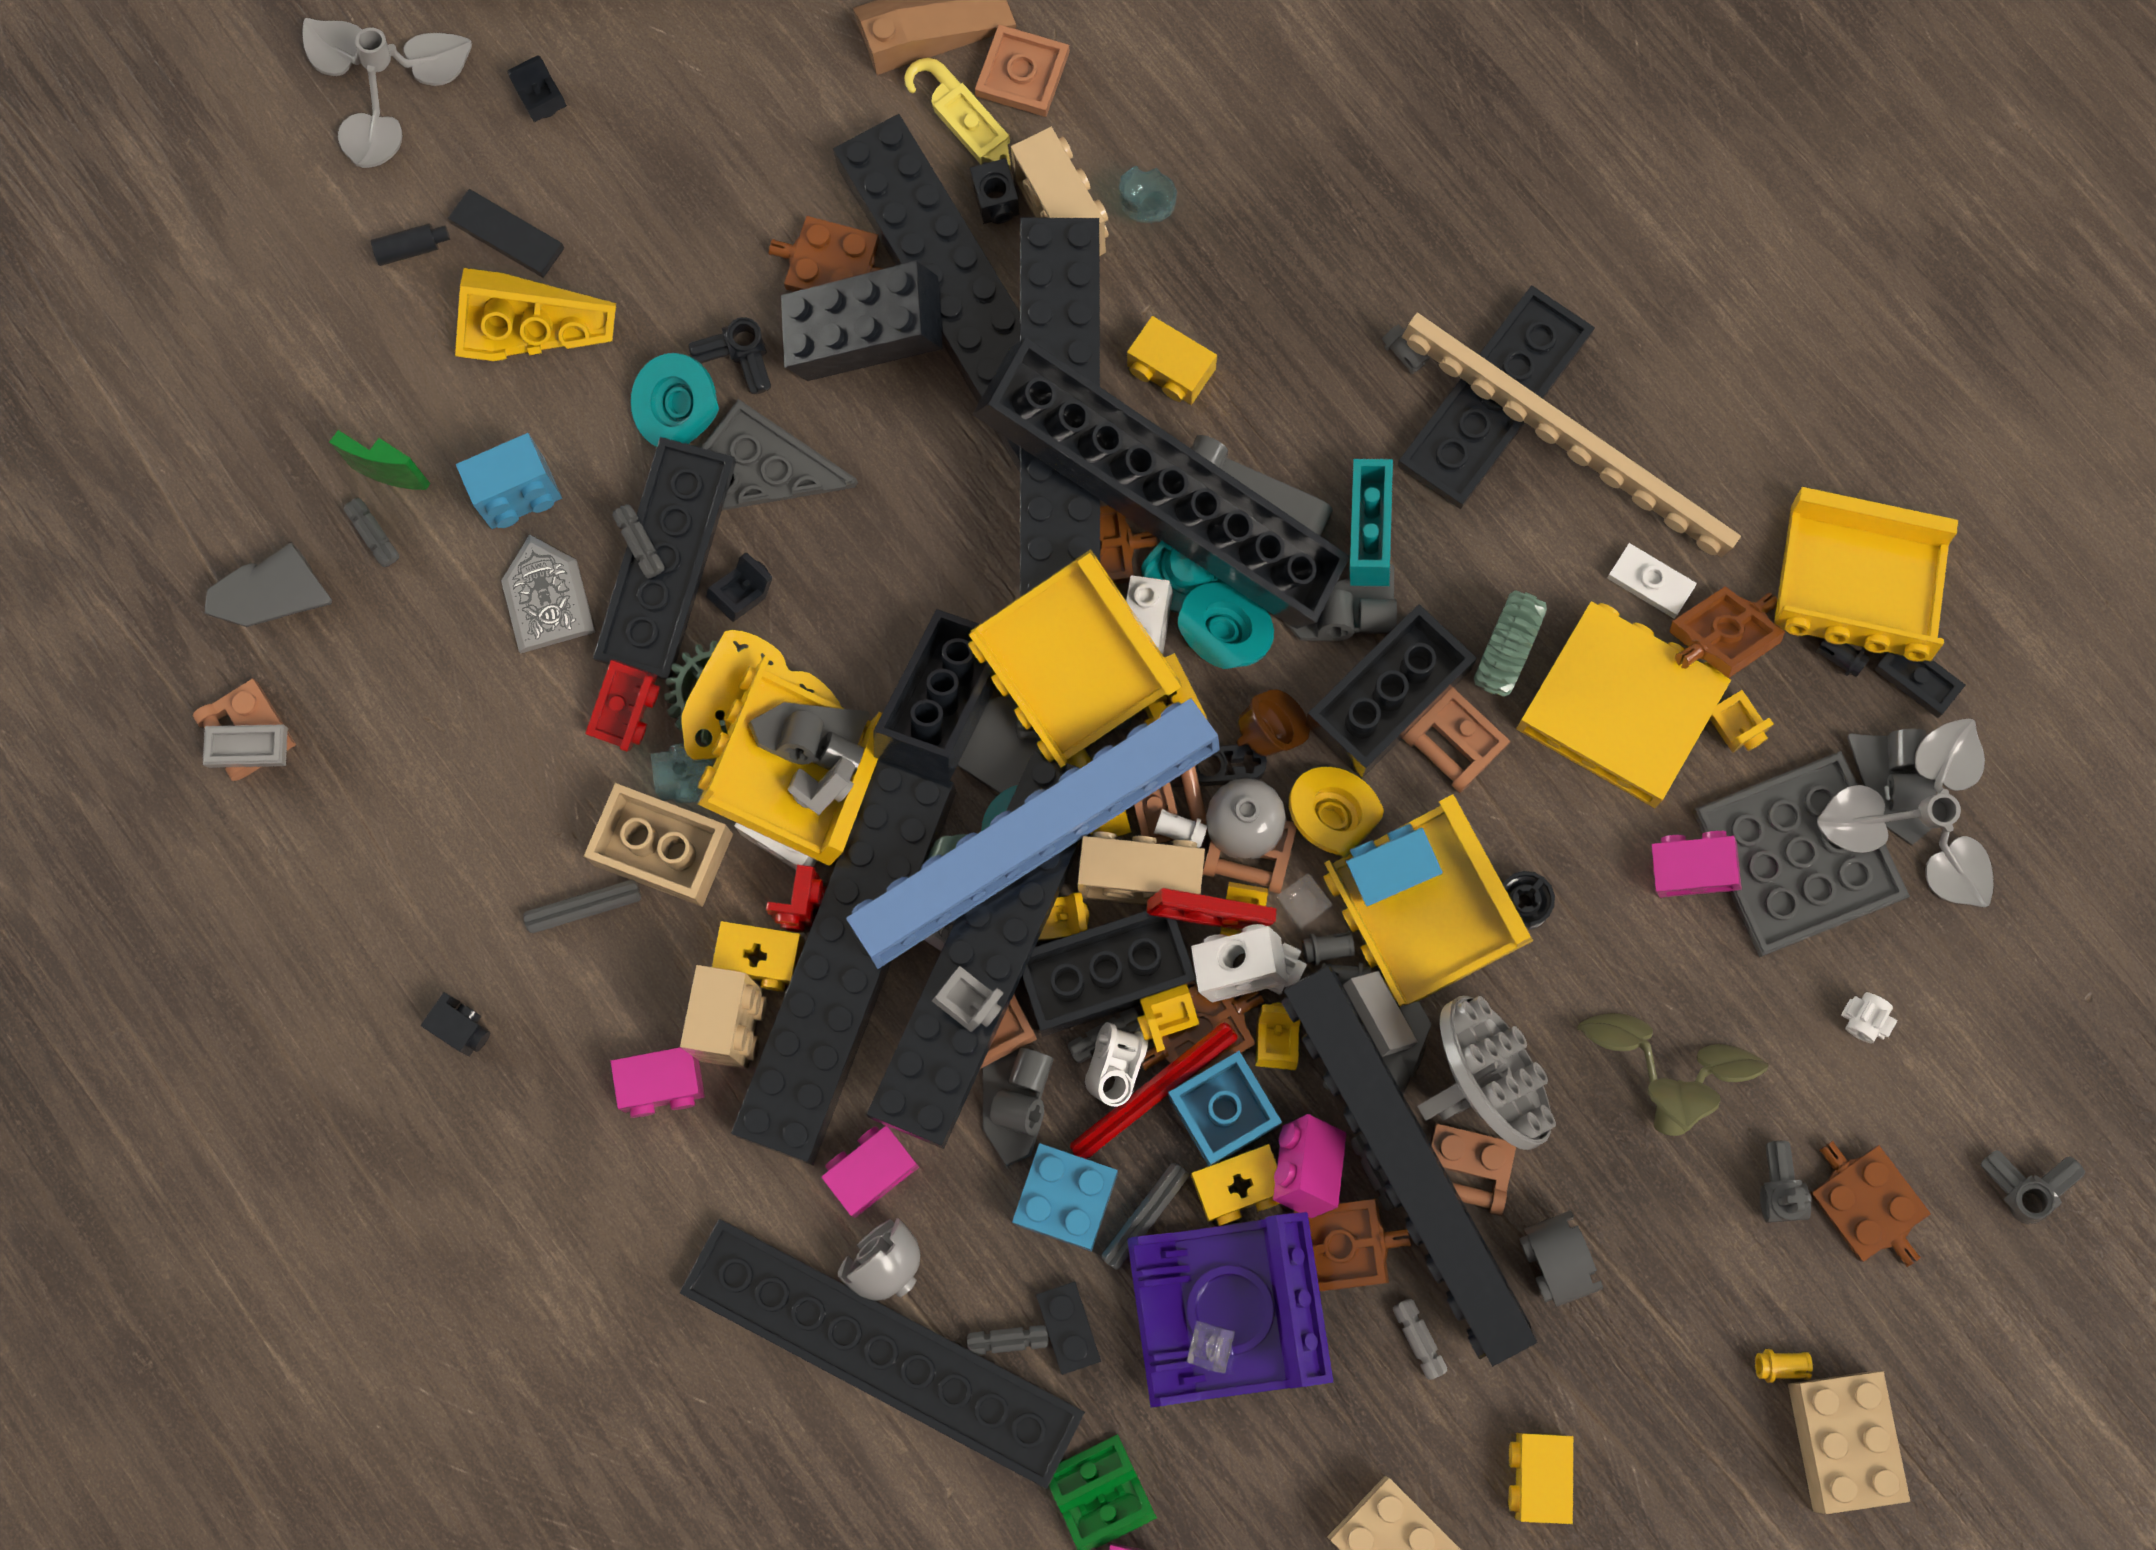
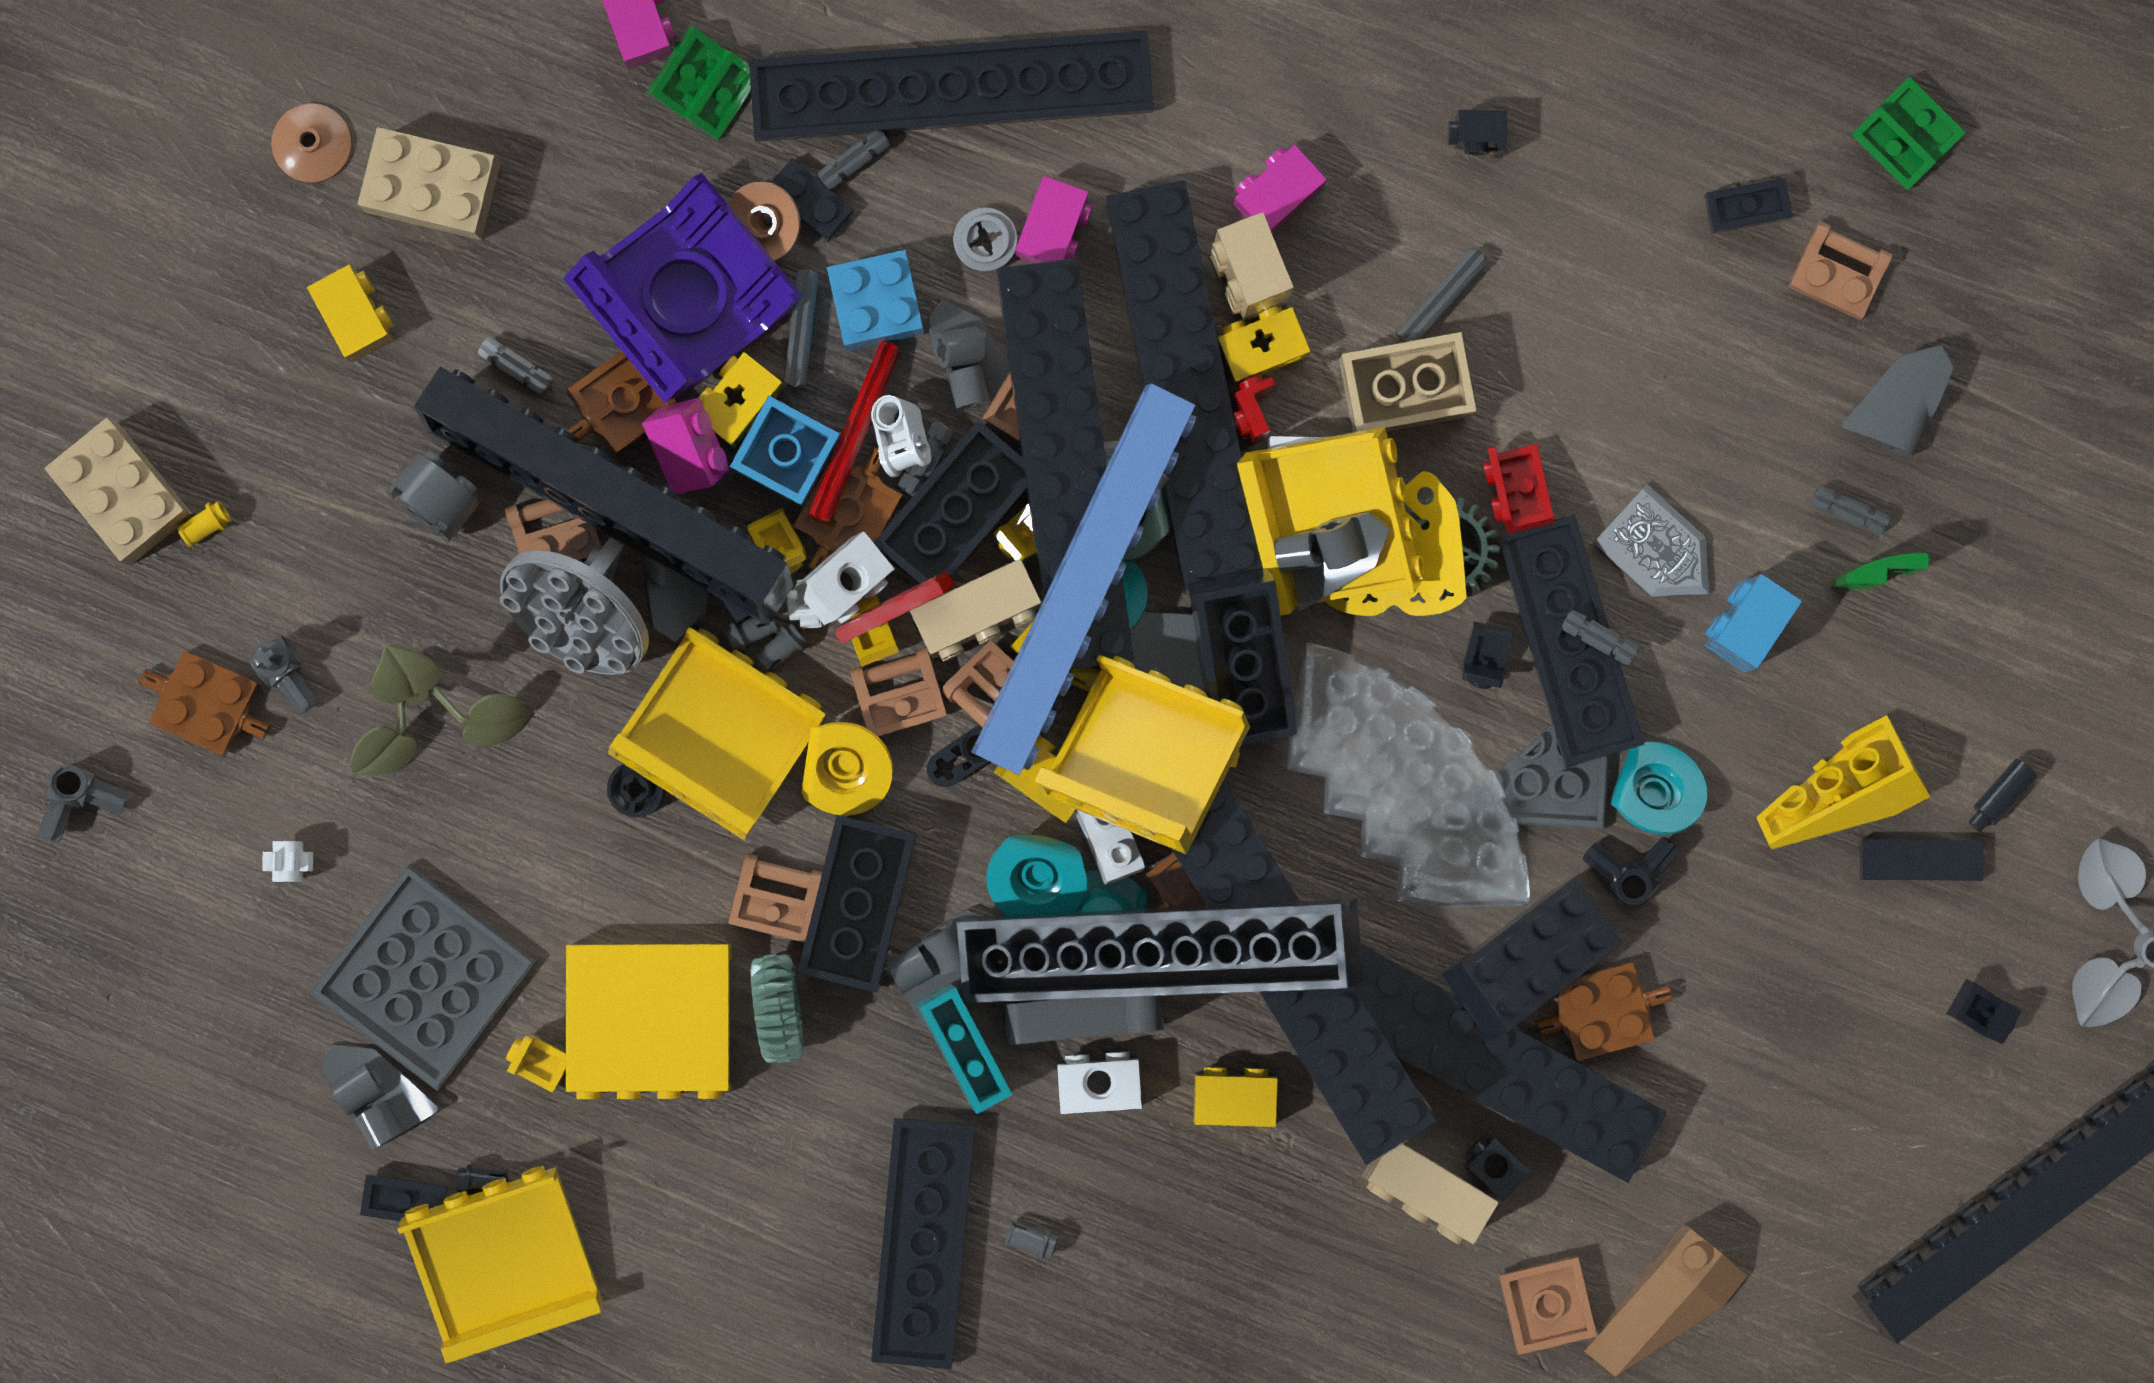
camera: 140 degrees right, 10 degrees up
(109, 808) = (1908, 133): none -> green slope
(245, 746) = (1824, 253): light grey tile -> none
(280, 826) = (1748, 206): none -> black plate
(677, 774) = (1434, 445): clear light blue brick -> none
(820, 794) = (1288, 507): light grey bracket -> none
(870, 524) = (1409, 782): none -> clear brick
(884, 1263) = (993, 155): light grey cylinder -> none
(924, 1180) = (992, 222): none -> light grey gear
(962, 113) = (1575, 1229): light yellow plate -> none
(968, 1000) = (1047, 399): light grey bracket -> none
(1114, 1355) = (756, 200): none -> nougat dish
(1147, 195) = (1353, 1247): clear light blue hair -> none
(1167, 1014) = (881, 500): yellow bracket -> none
(1180, 828) = (965, 669): white pin -> none
(1210, 1347) = (681, 249): clear plate -> none
(1245, 818) = (916, 713): light grey cylinder -> none
(1266, 416) = (1121, 1095): none -> white brick
(1272, 723) = (941, 813): reddish brown piece -> none
(1304, 901) = (824, 674): clear plate -> none
(1380, 1013) = (701, 608): light grey tile -> none
(1393, 865) = (763, 739): dark azure brick -> none
(1581, 444) = (852, 1235): tan plate -> none
(1651, 580) = (687, 1151): white plate -> none
(1696, 865) = (505, 906): dark pink brick -> none
(1727, 631) = (594, 1136): dark orange plate -> none
(1952, 758) = (337, 1132): light grey plant -> none

